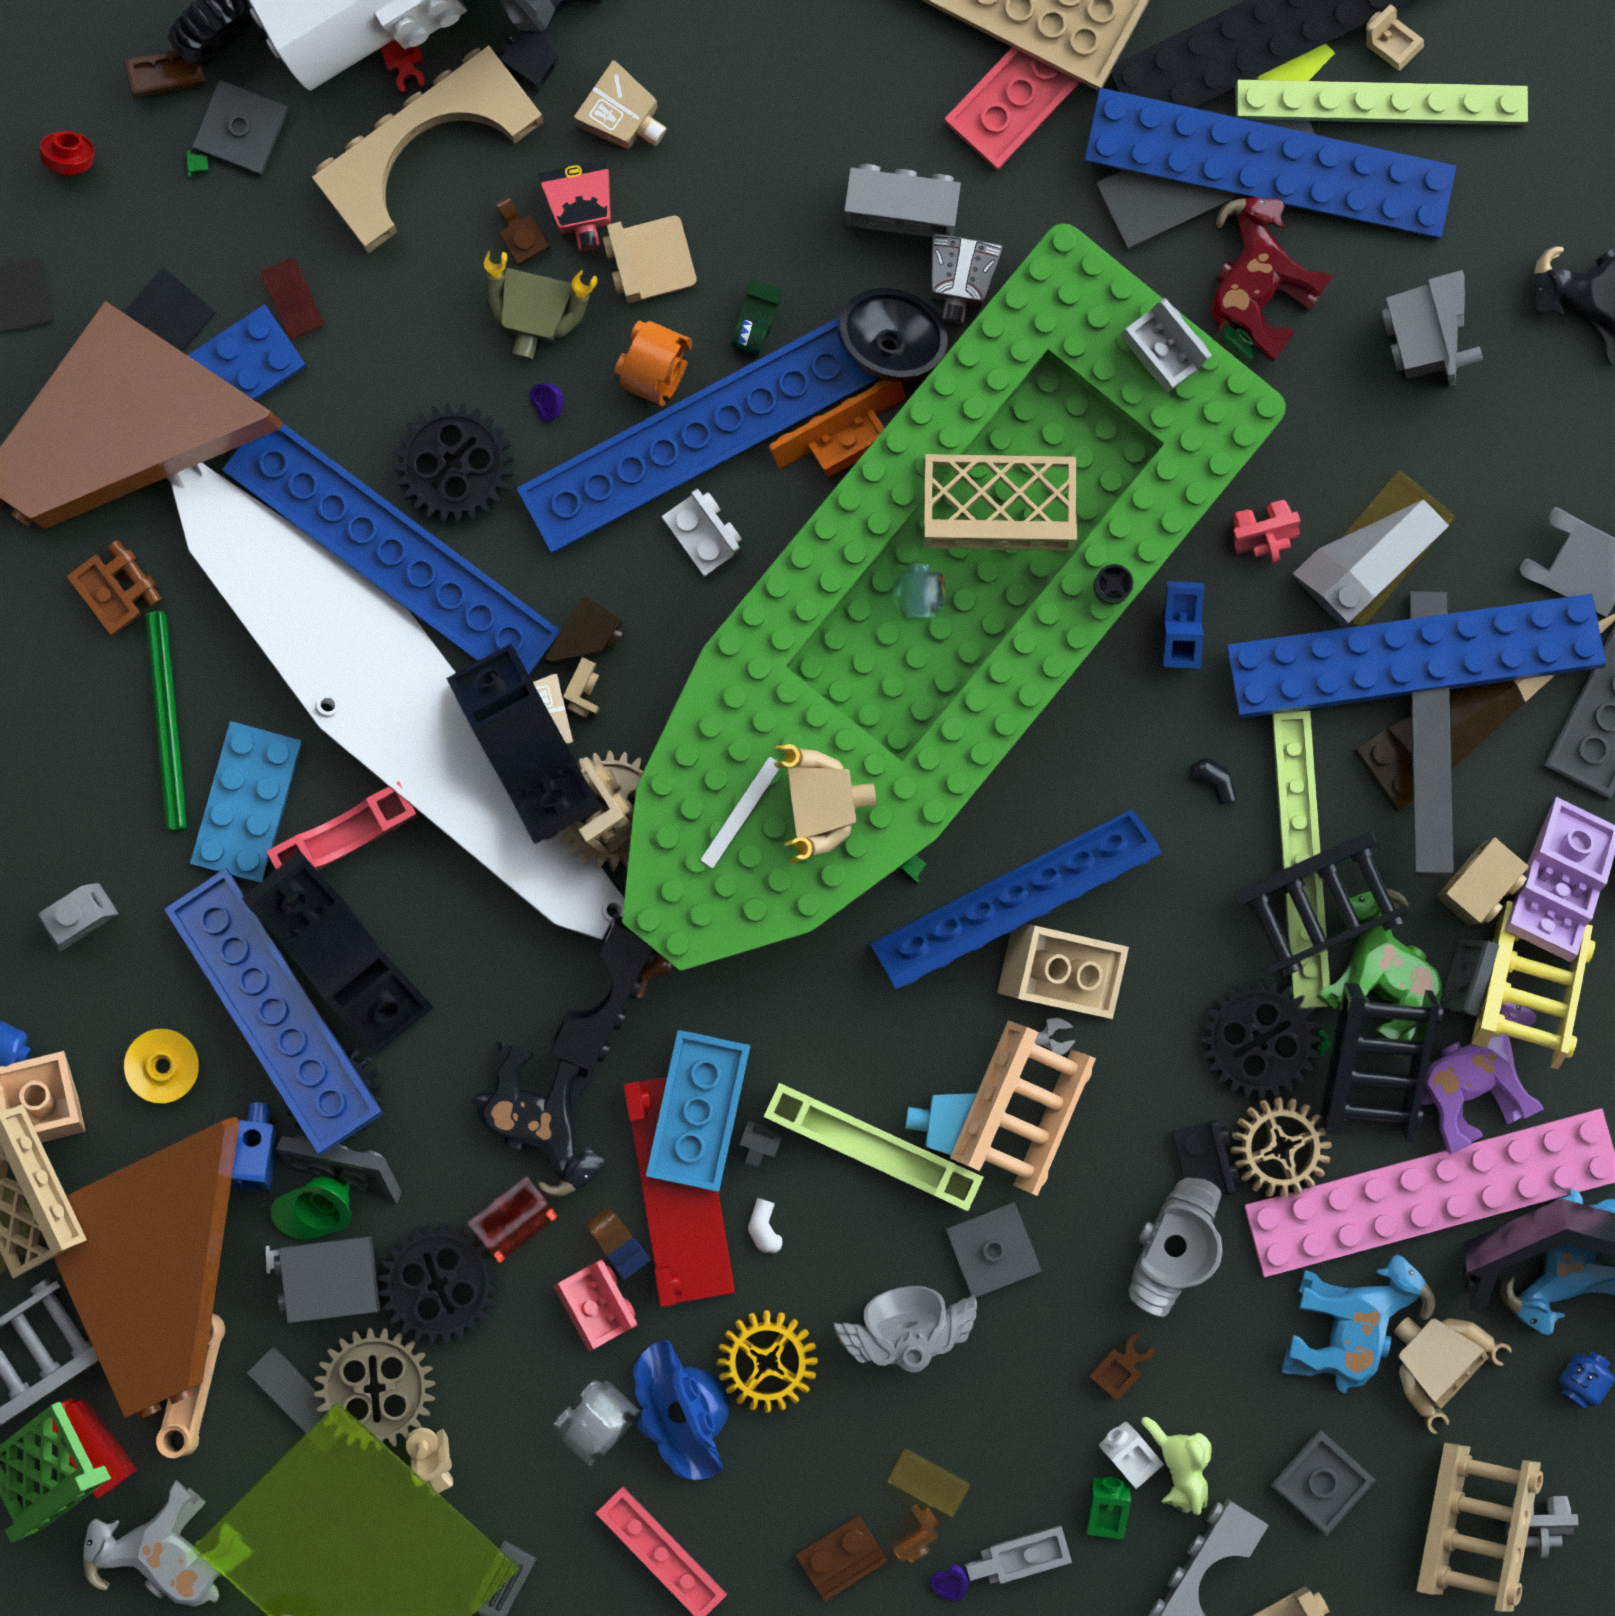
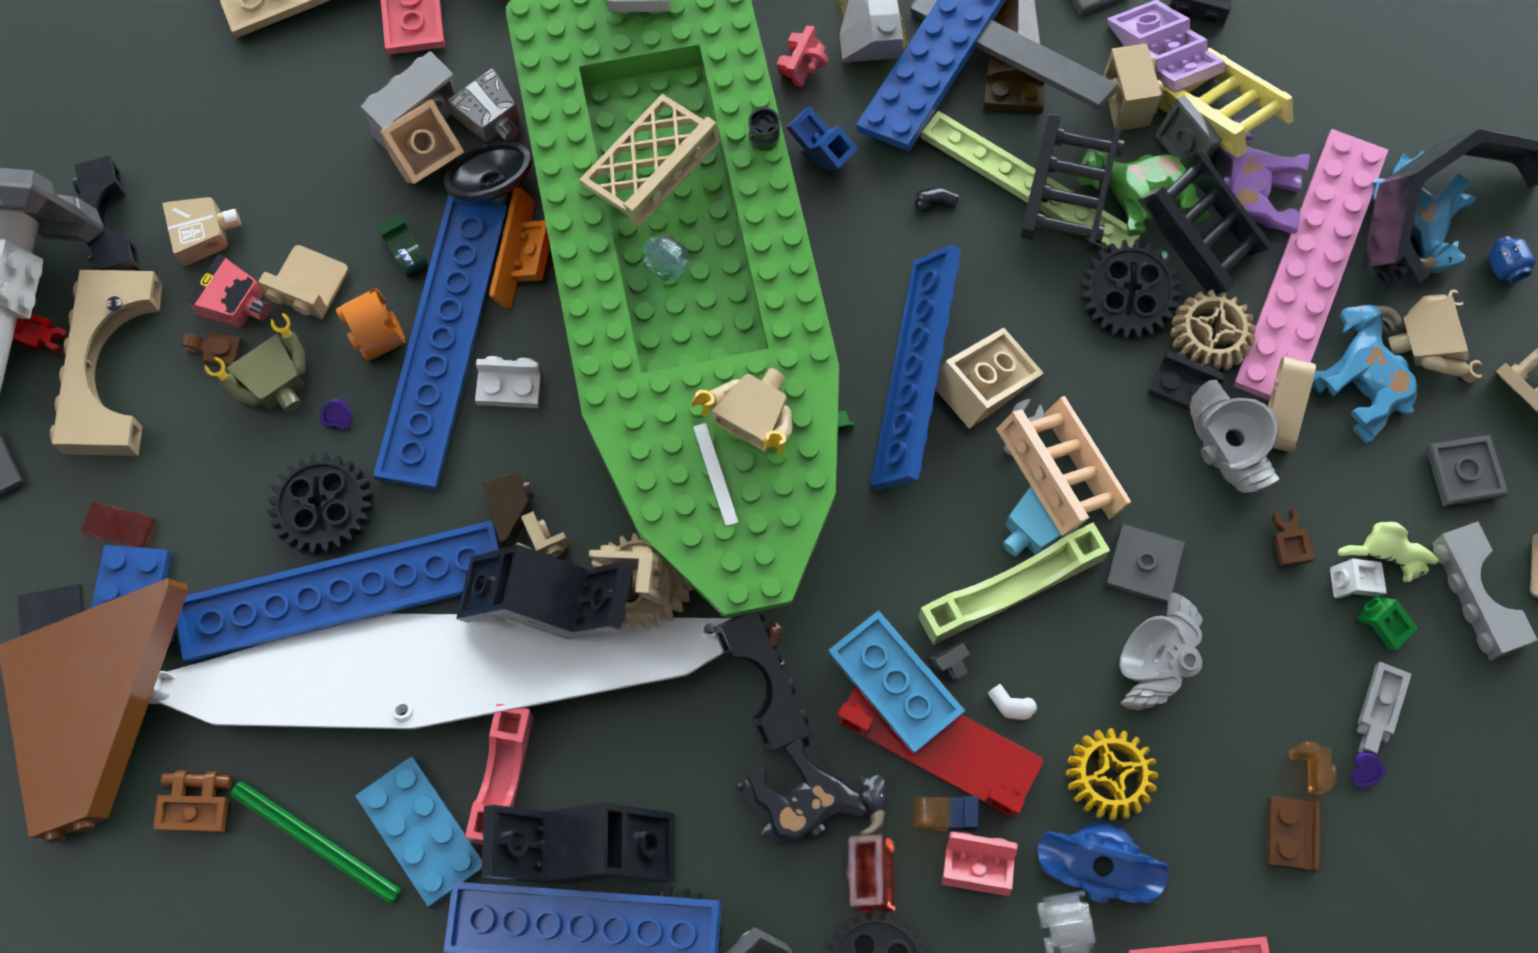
camera: 45 degrees left, 15 degrees down
(481, 109) = (114, 303): none -> black piece
(866, 252) = (420, 142): none -> light nougat slope
(928, 1482) = (1280, 731): clear yellow tile -> none
(1255, 1270) = (1290, 399): none -> tan beam

